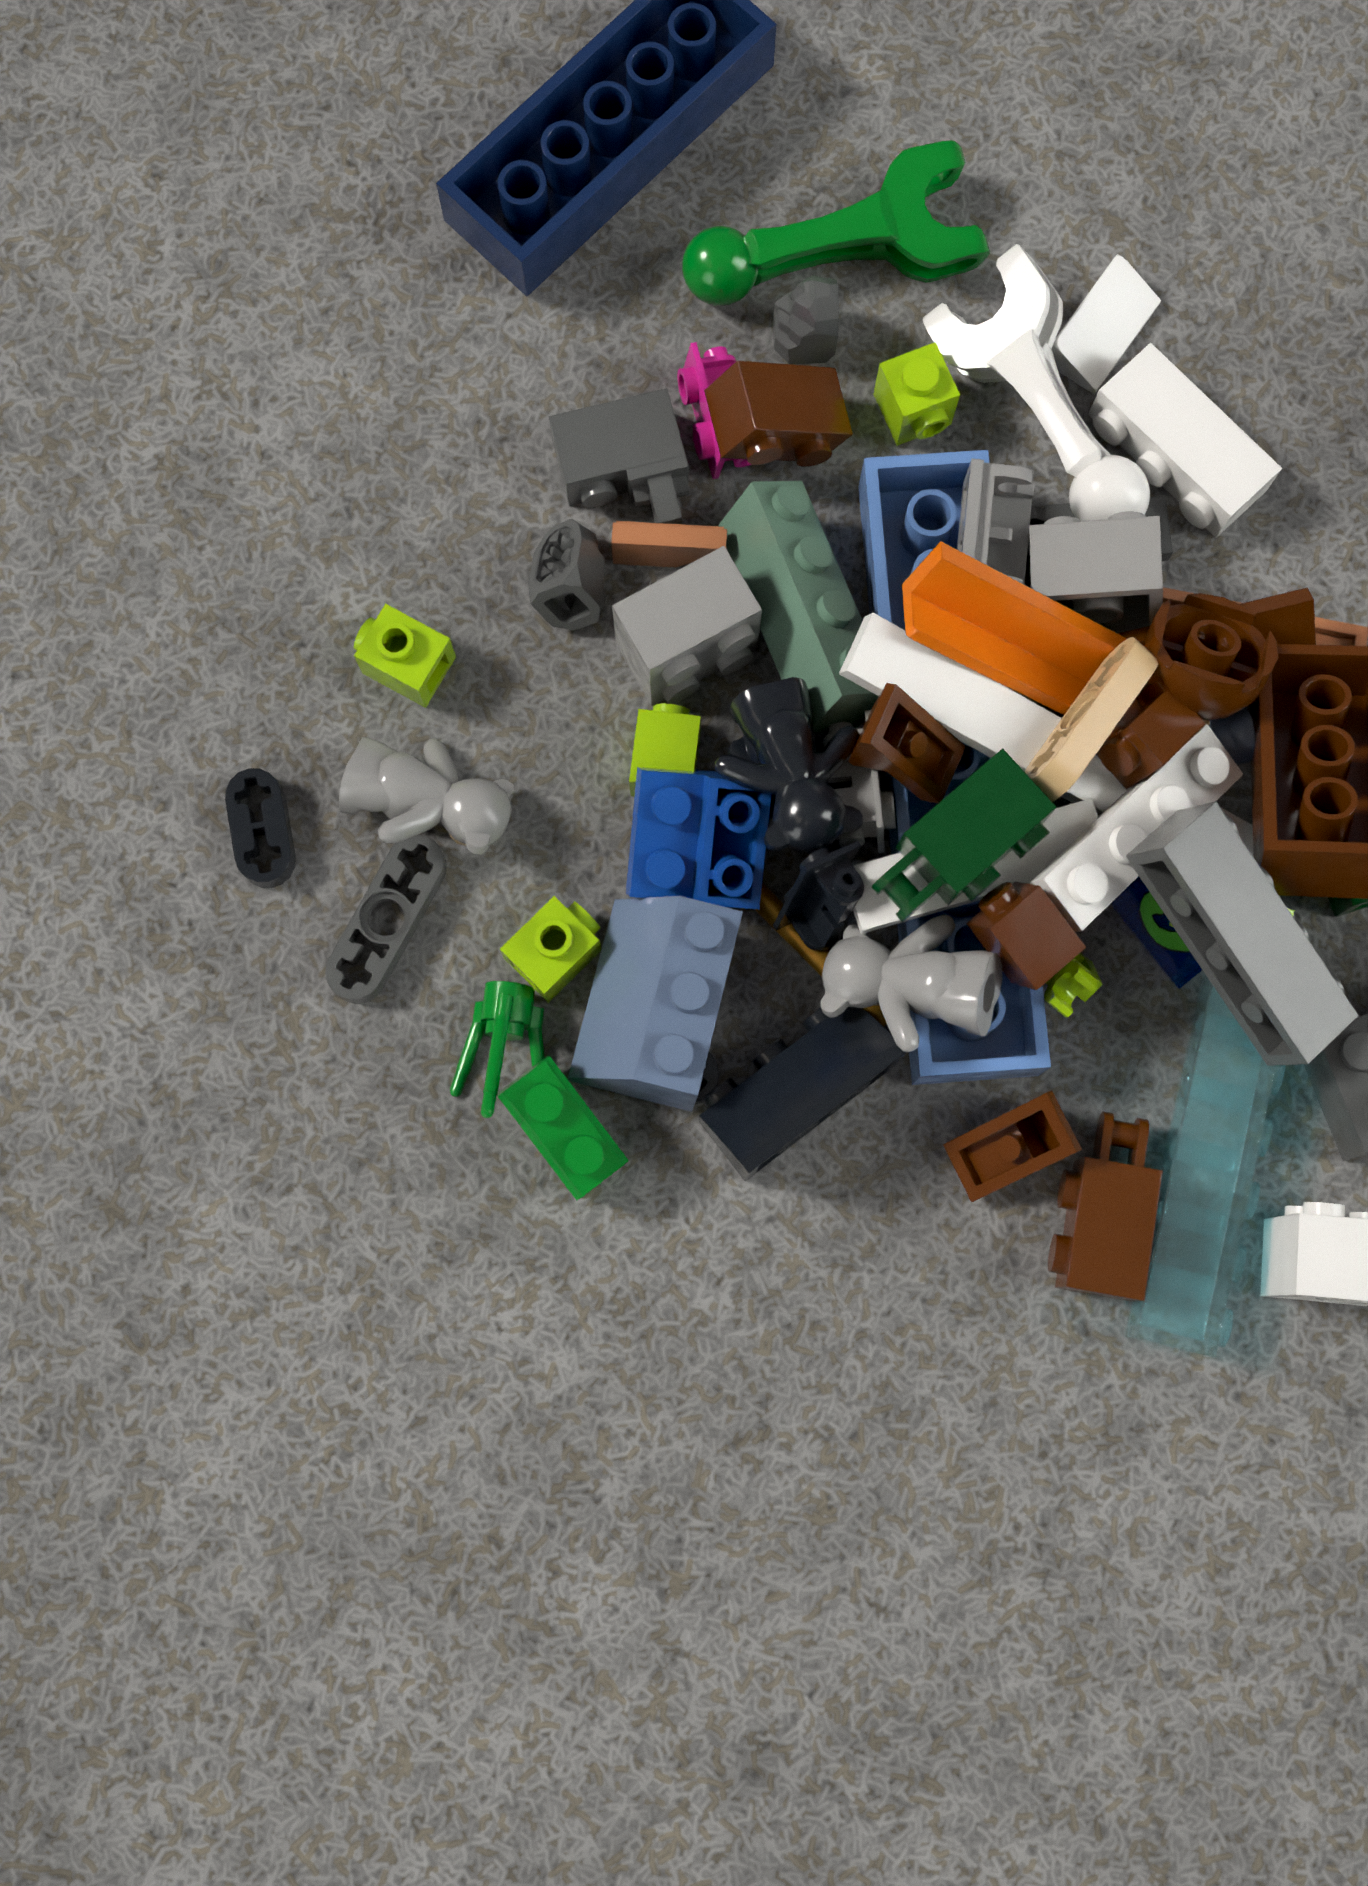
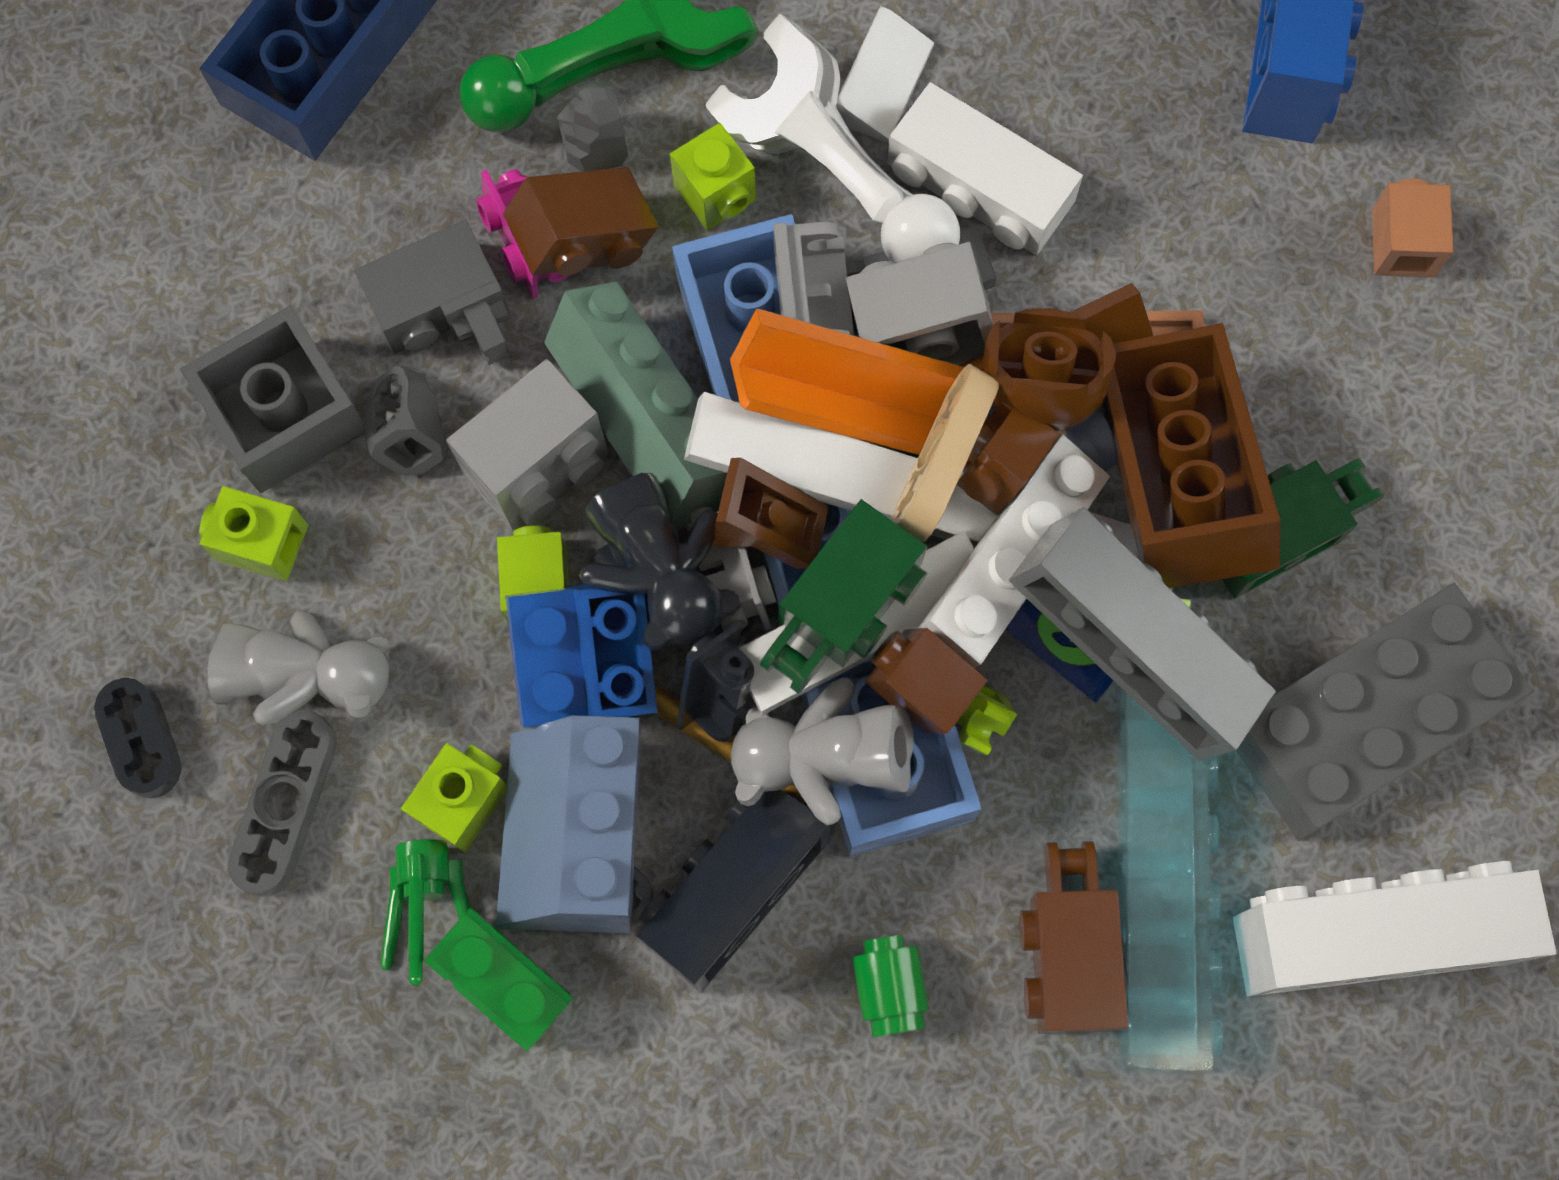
camera: 10 degrees left, 5 degrees down
(449, 528) = (273, 399): none -> dark grey brick
(663, 543) = (490, 371): nougat tile -> none
(926, 1213) = (890, 986): none -> green brick
(1012, 1146) = (961, 898): reddish brown slope -> none

